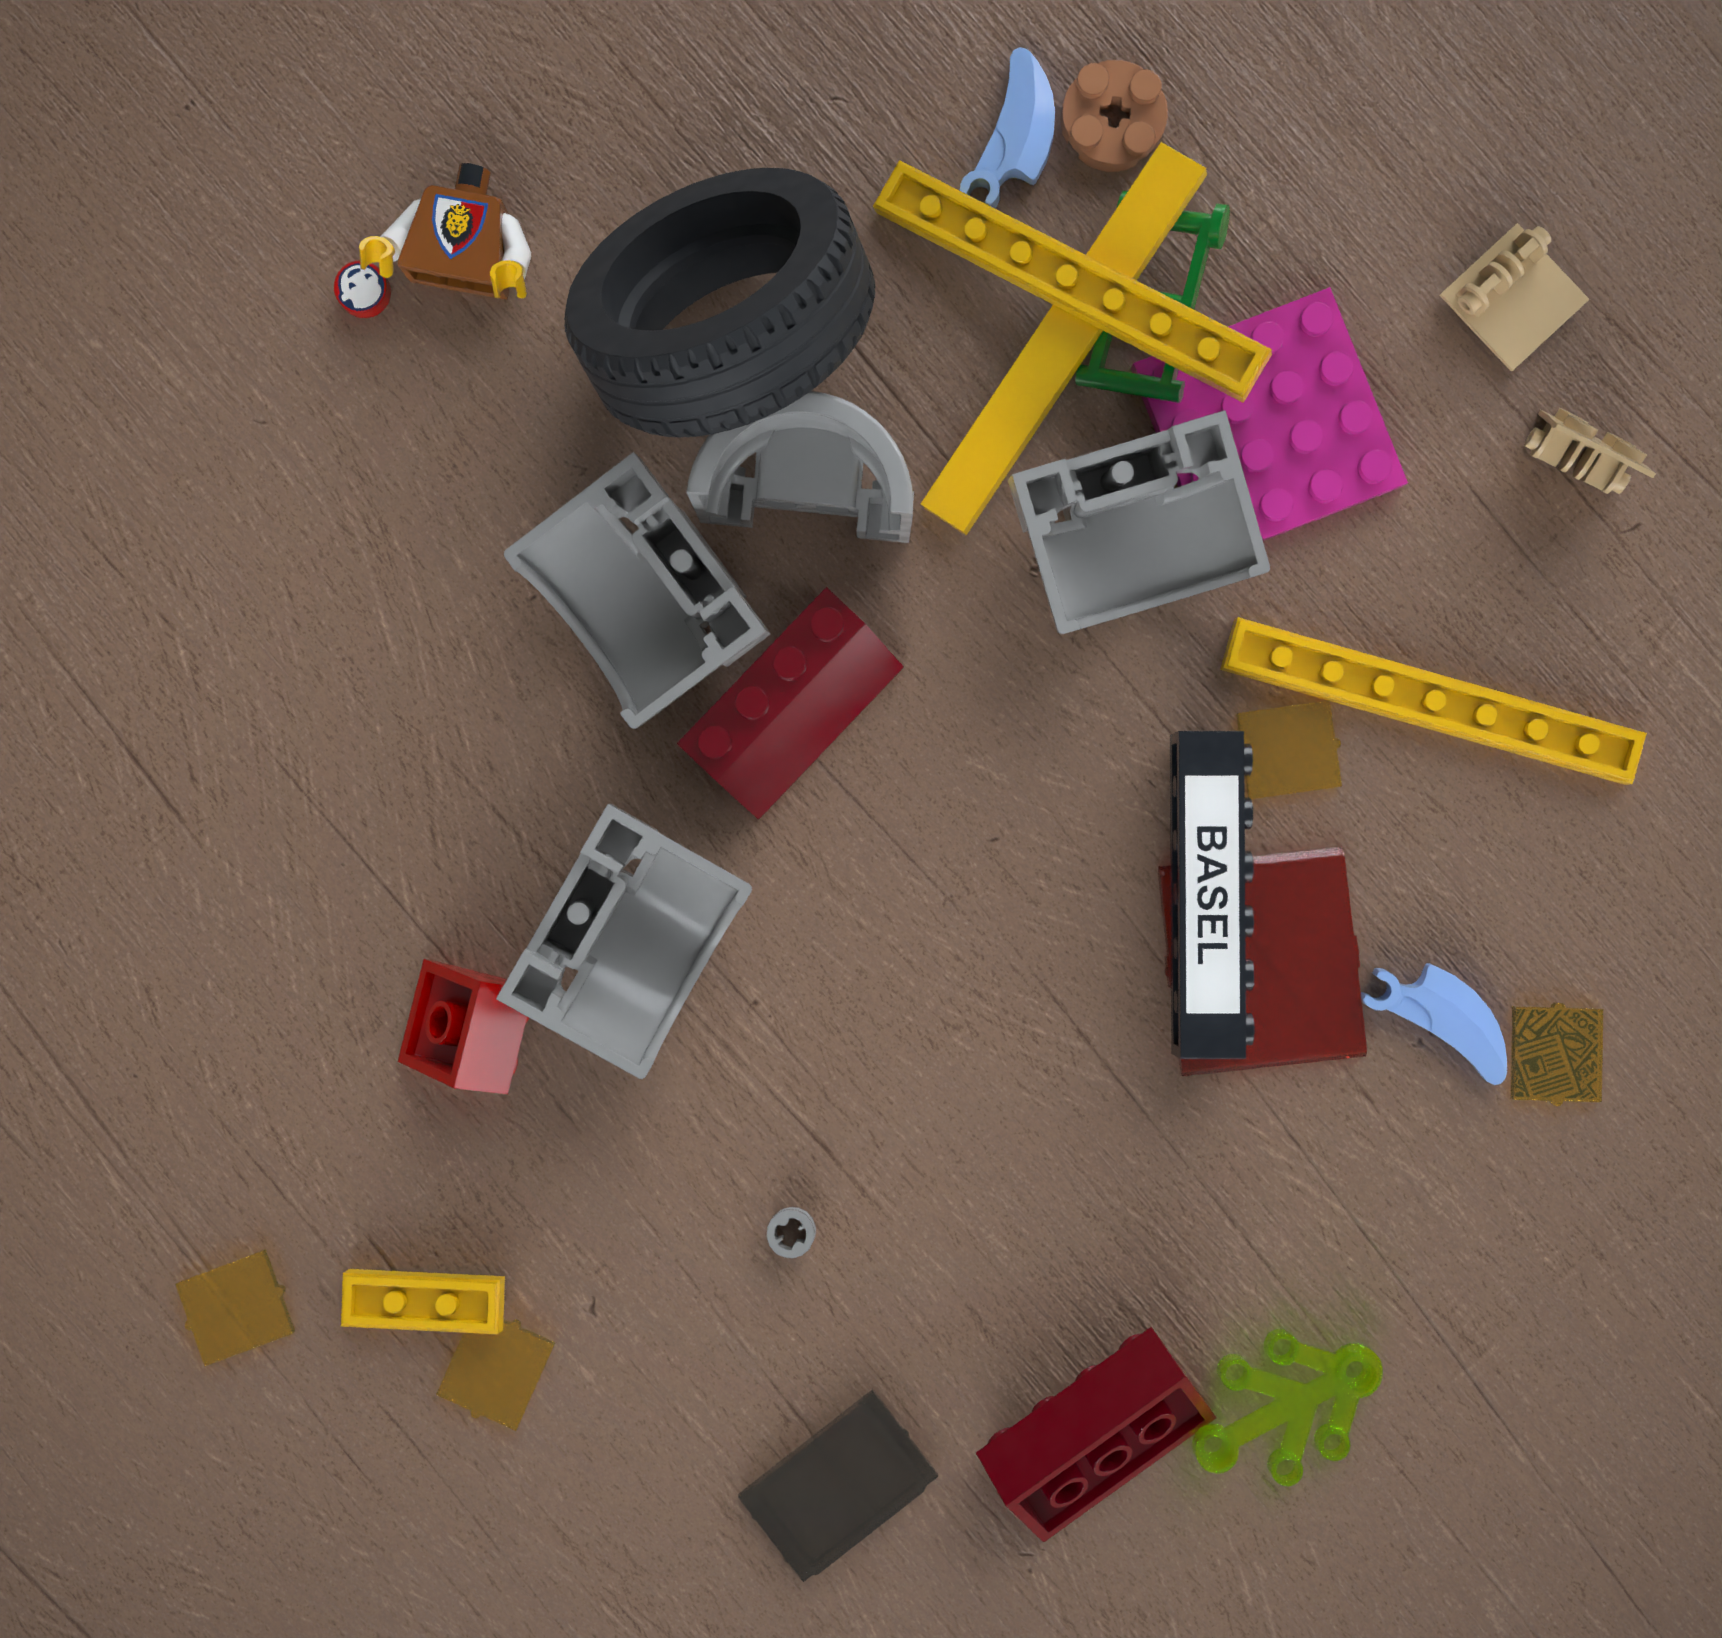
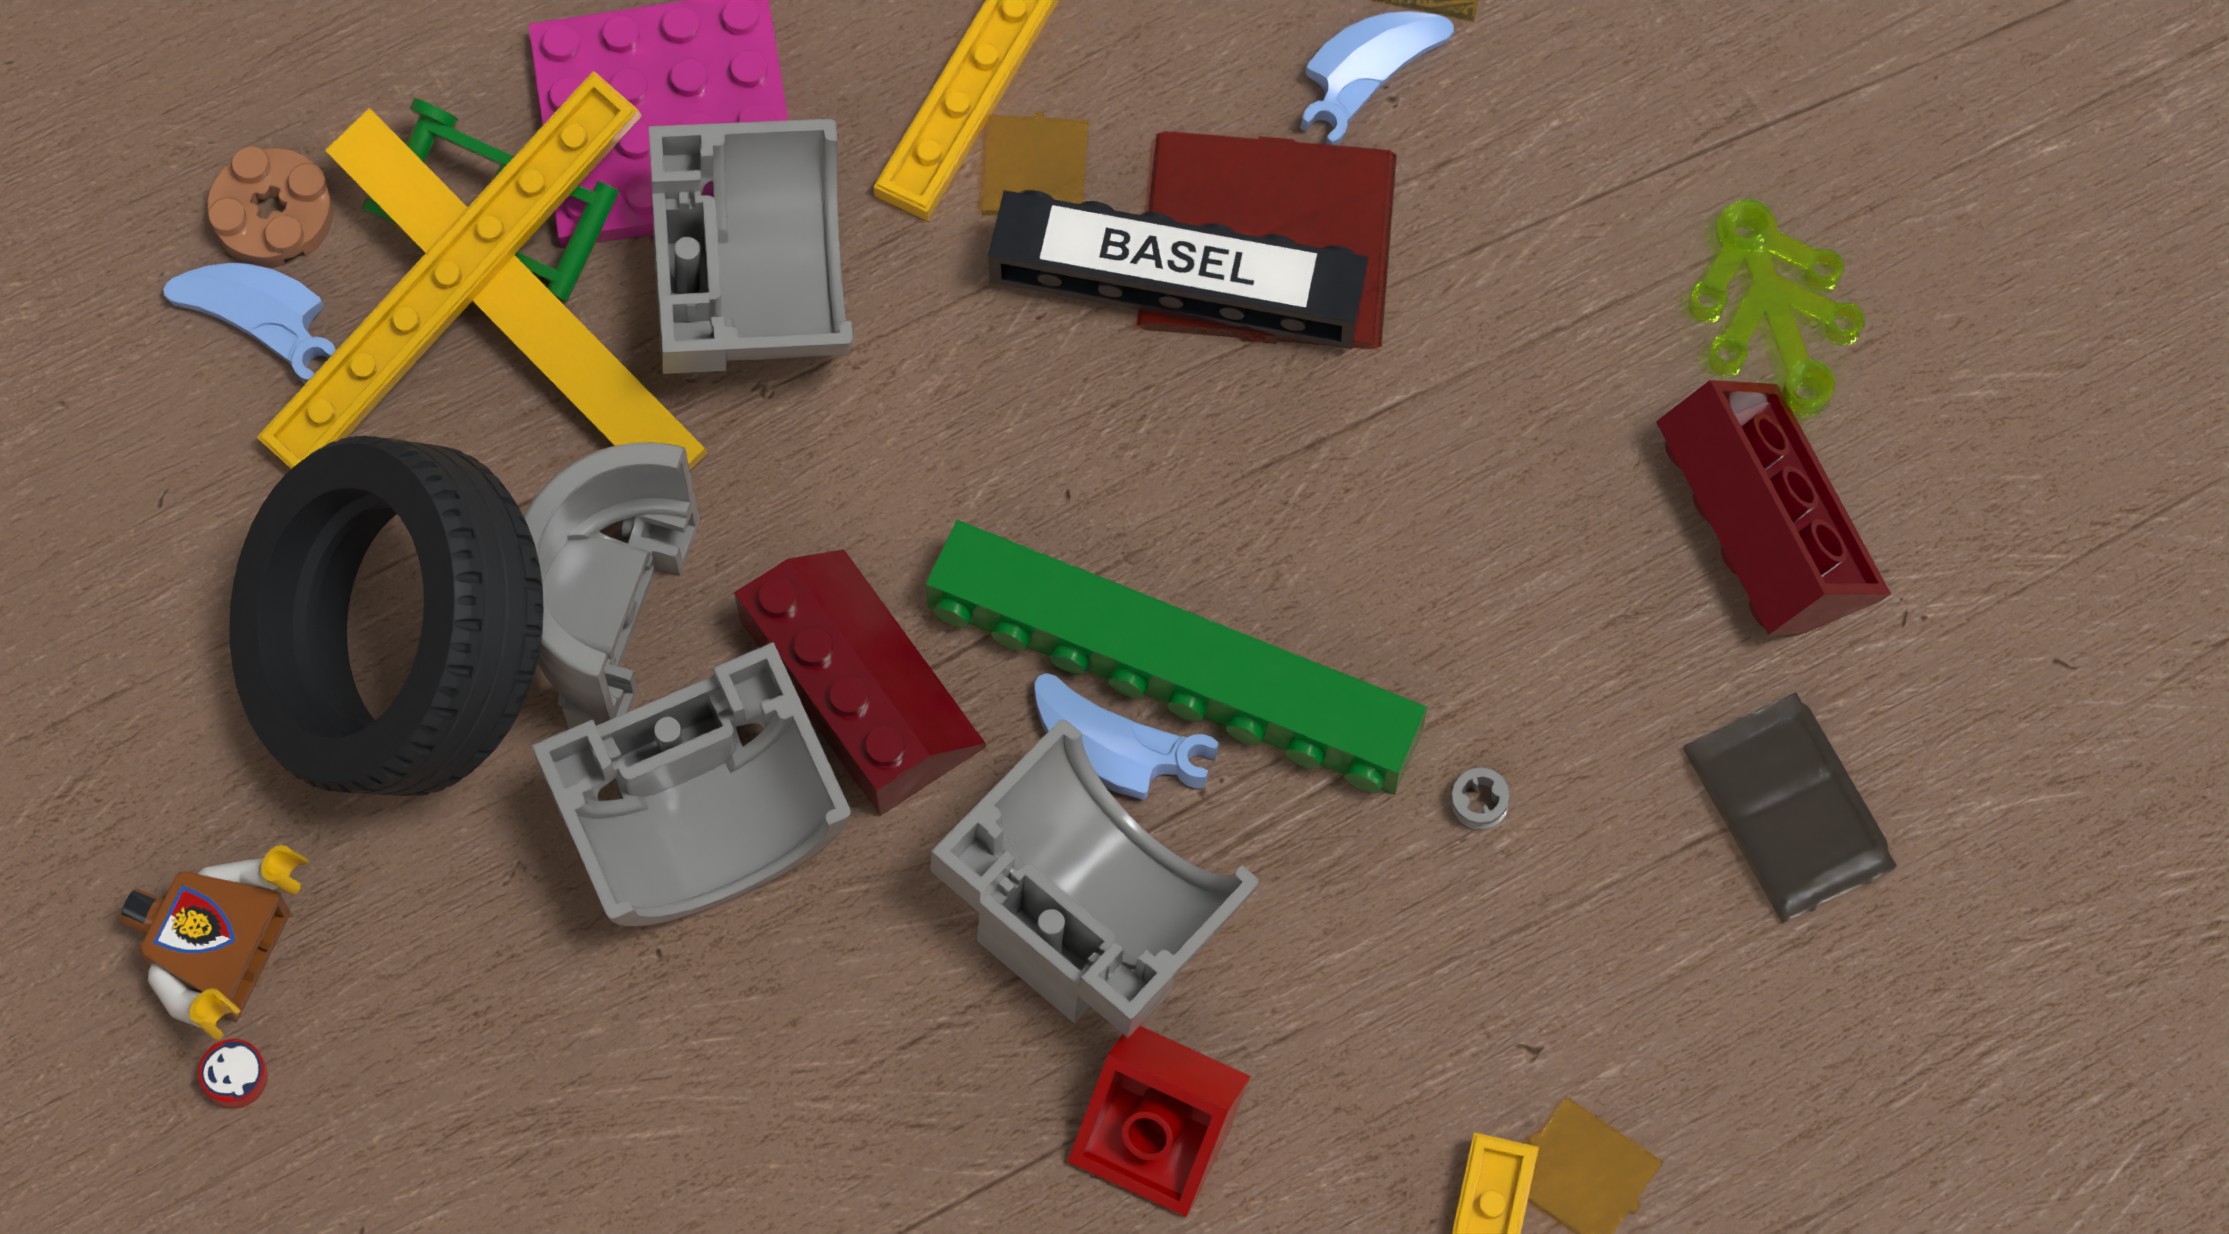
camera: 80 degrees left, 20 degrees down
(774, 922) = (1119, 749): none -> light blue piece
(857, 961) = (1175, 658): none -> green brick

